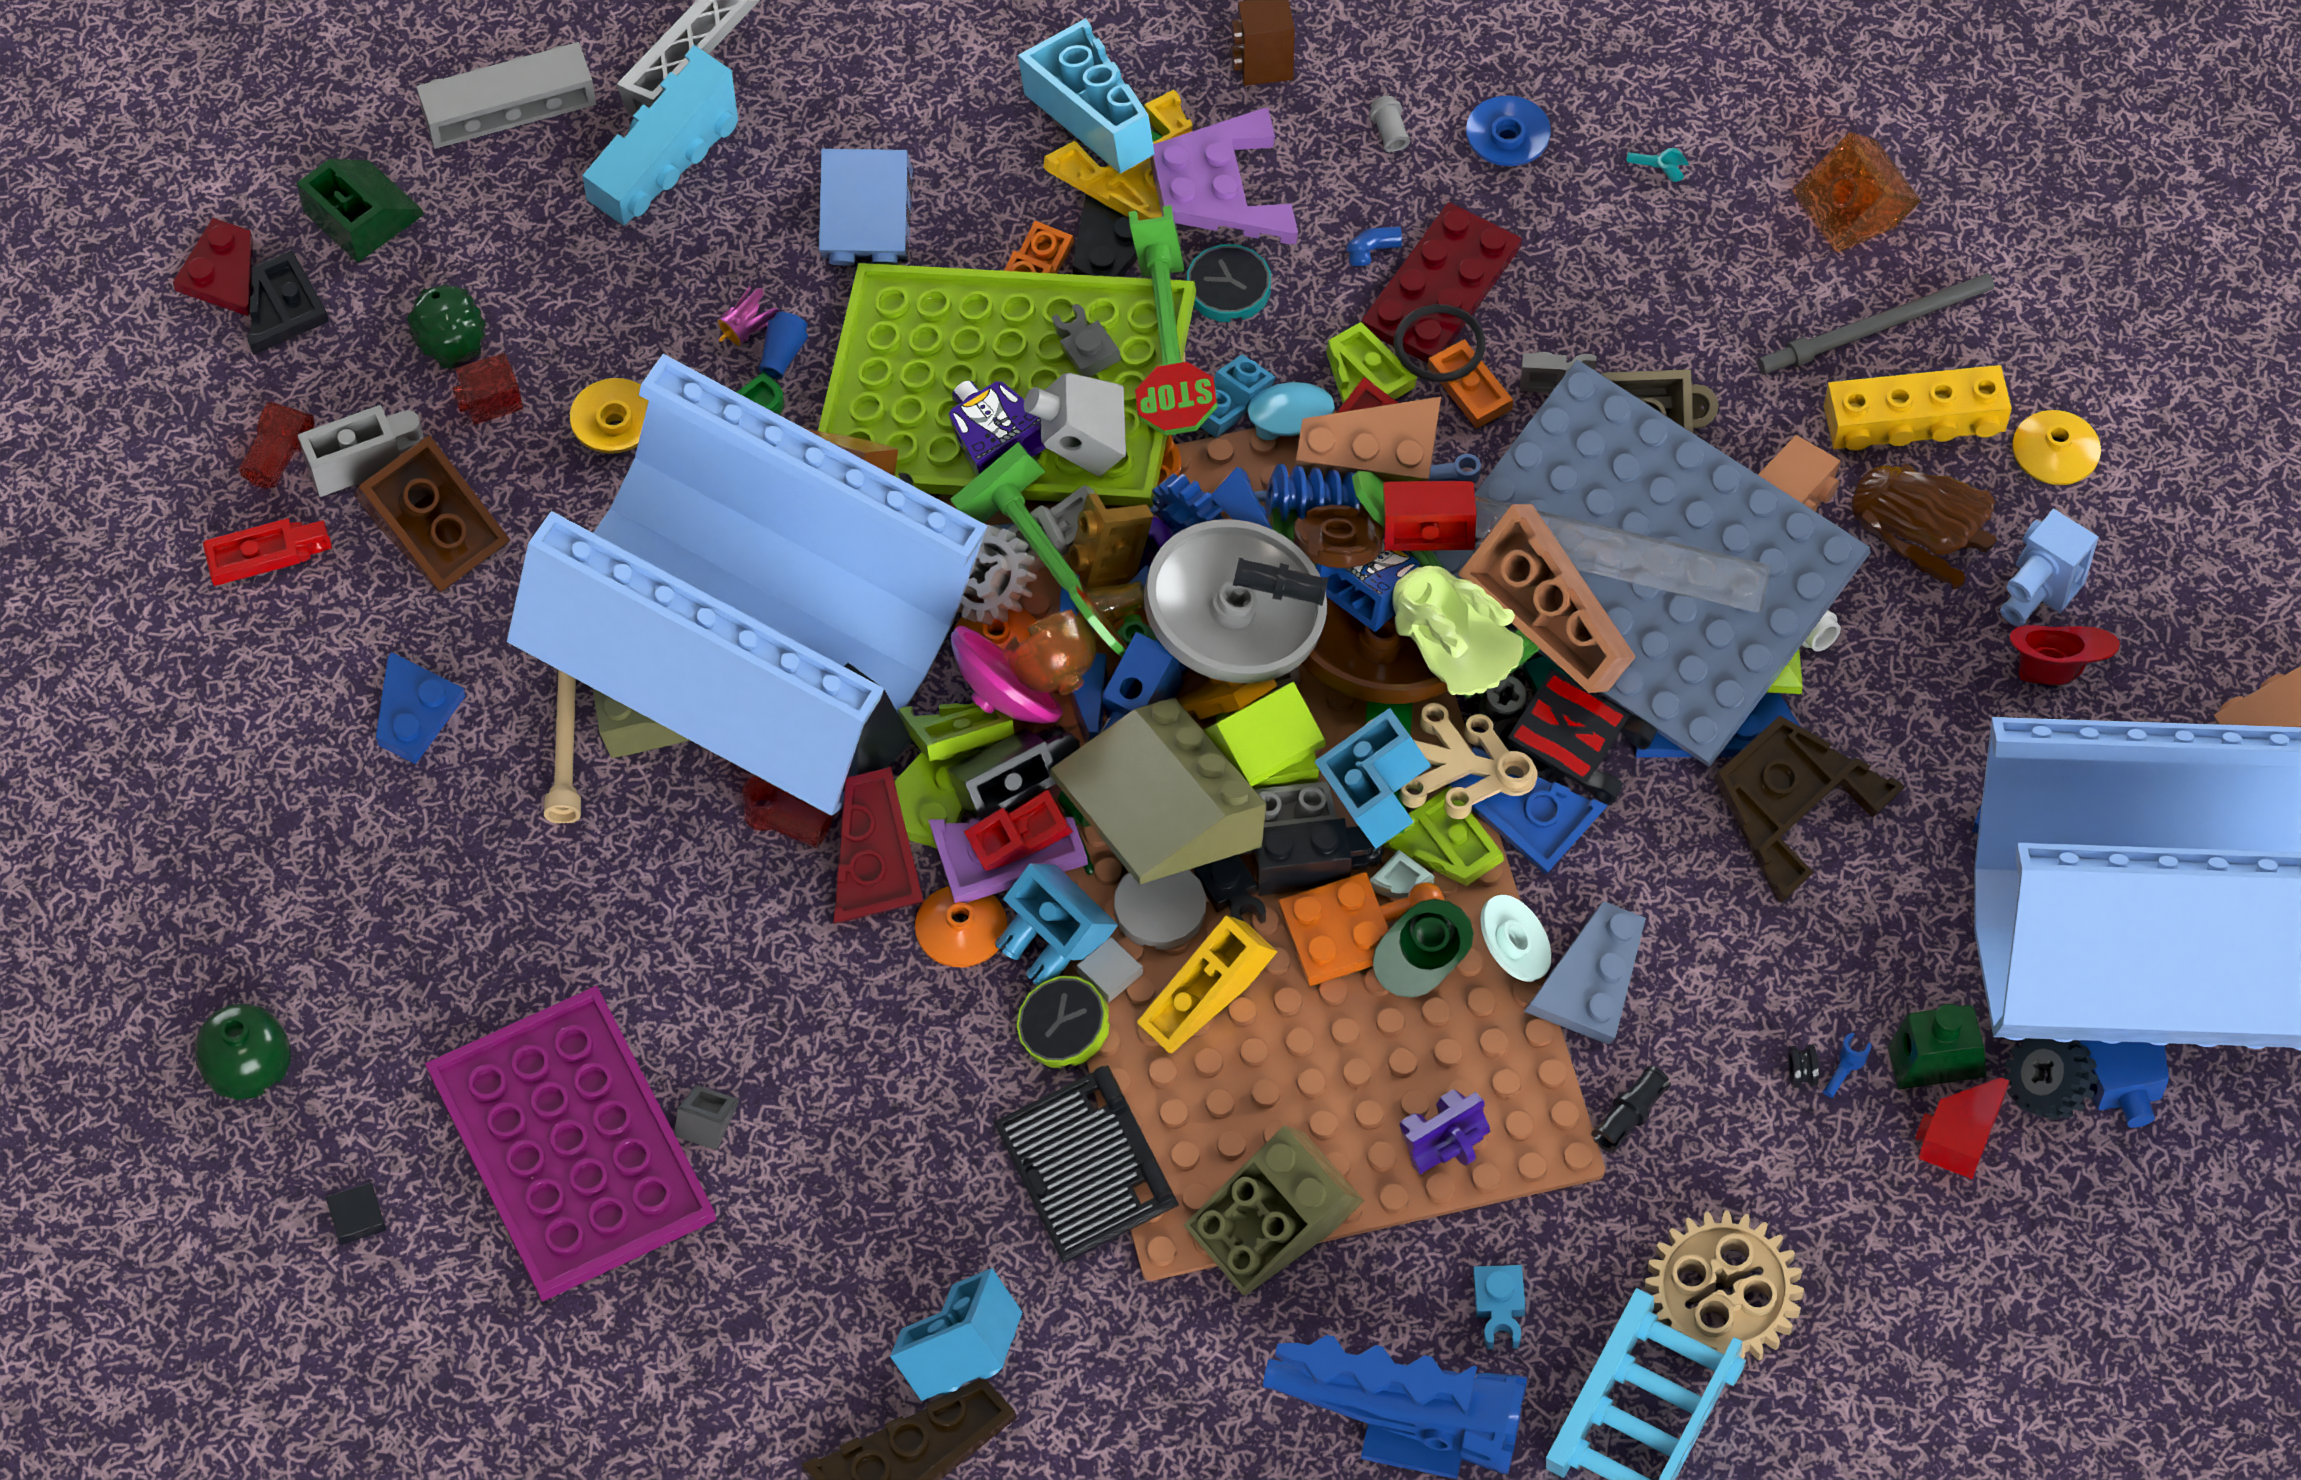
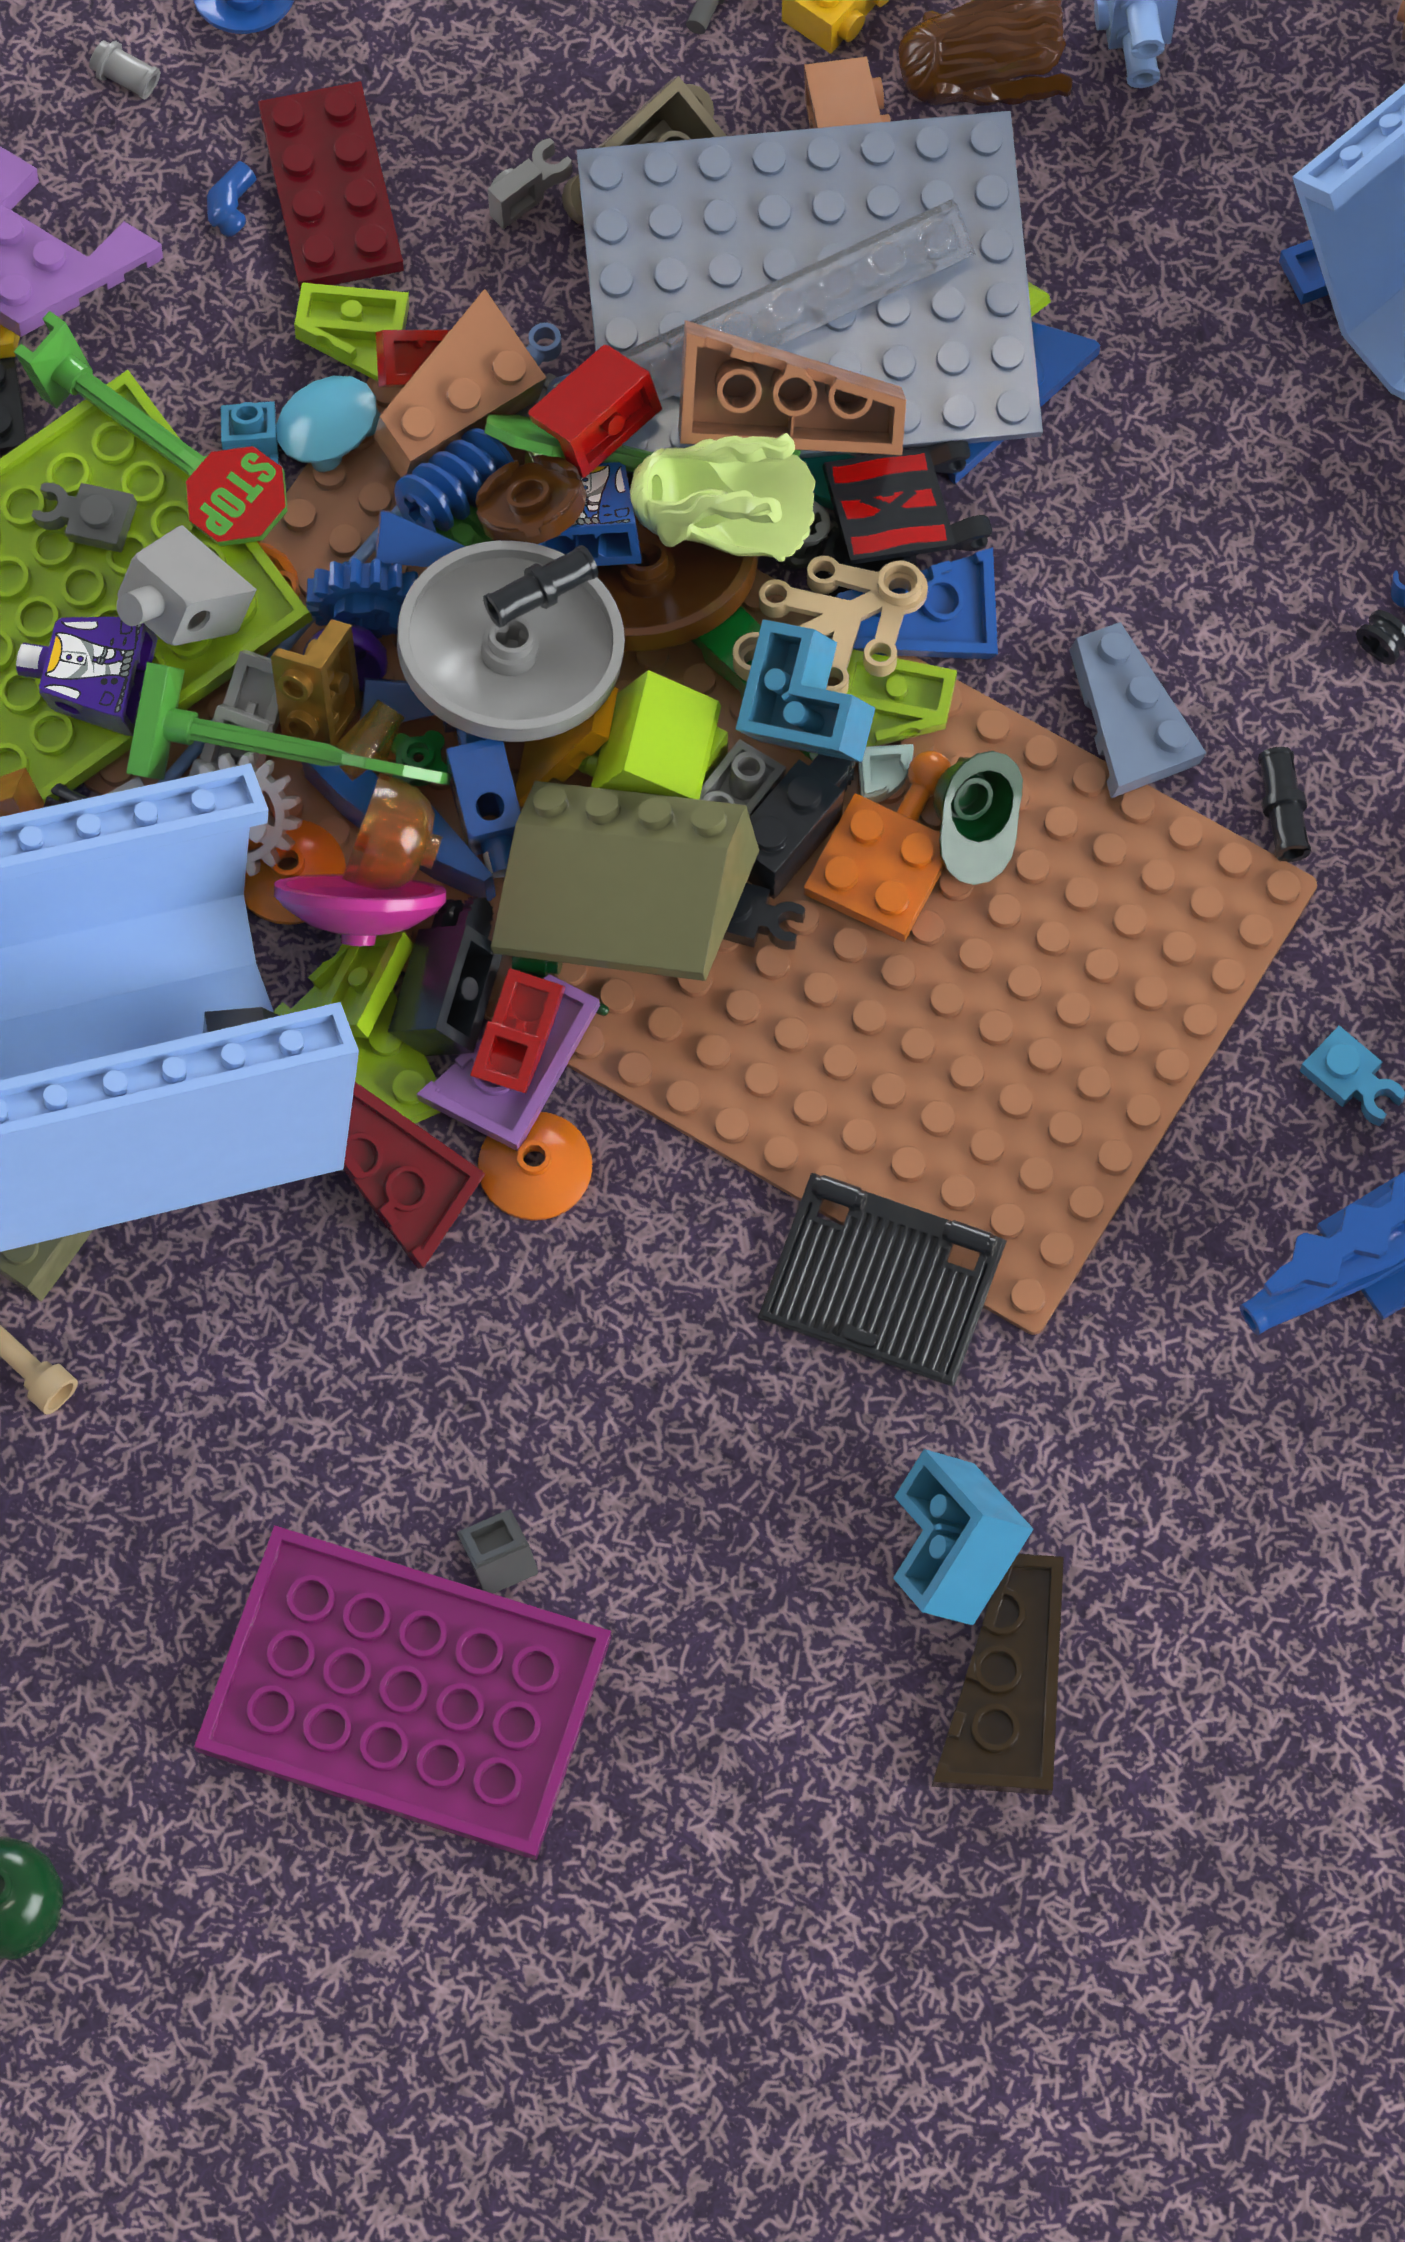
camera: 45 degrees left, 10 degrees up
(355, 1213) = (276, 1944): black tile -> none
(785, 813) = (273, 1209): clear red piece -> none
(1059, 912) = (633, 1073): dark azure brick -> none
(1063, 1021) = (728, 1169): black tile -> none
(1110, 969) = (721, 1084): light grey tile -> none
(1160, 911) = (709, 1007): light grey tile -> none
(1207, 983) = (825, 1022): yellow slope -> none
(1230, 282) = (136, 337): black tile -> none
(1273, 1210) = (1096, 1173): olive slope -> none
(1439, 377) = (397, 287): black tyre -> none
(1448, 1134) = (1176, 967): dark purple hips -> none
(1476, 394) = (459, 259): orange plate -> none
(1515, 938) = (1044, 738): light aqua dish -> none
(1779, 782) = (1111, 402): dark brown wing -> none
(2060, 653) = (1219, 75): red piece -> none

